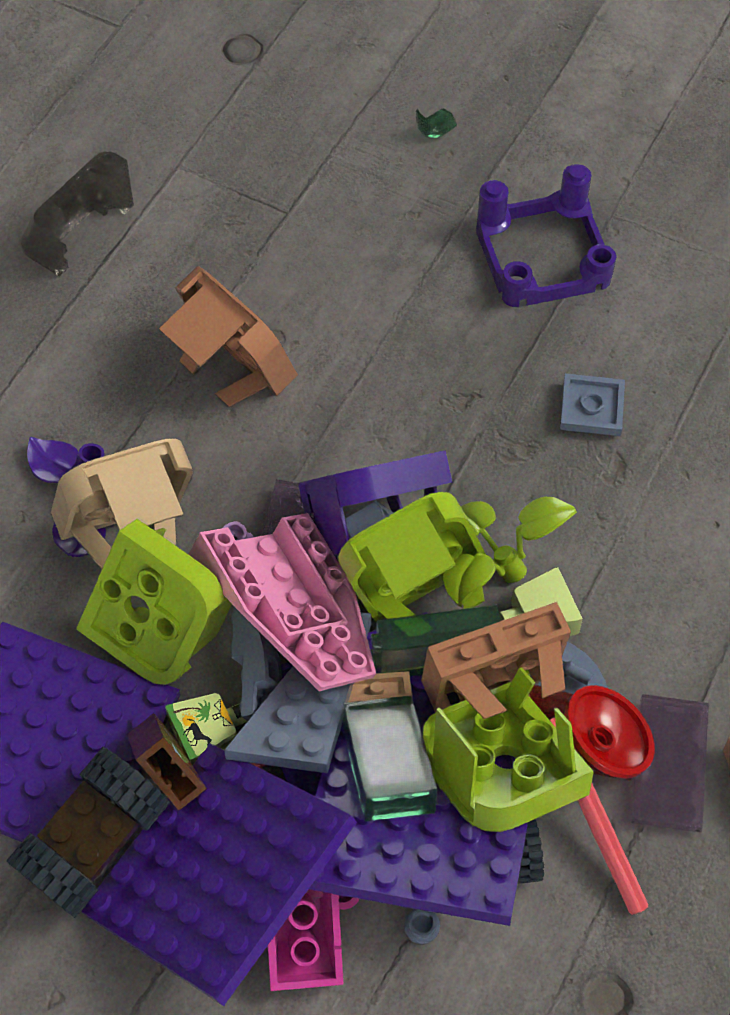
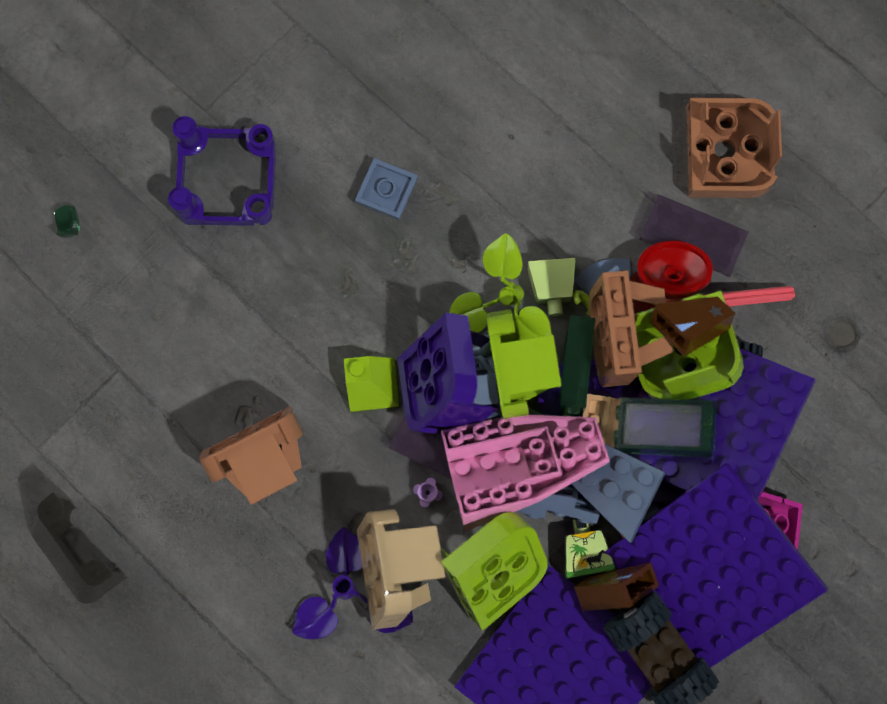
camera: 70 degrees left, 20 degrees up
(349, 440) = (371, 383): none -> lime slope
(532, 731) = (692, 322): none -> reddish brown slope

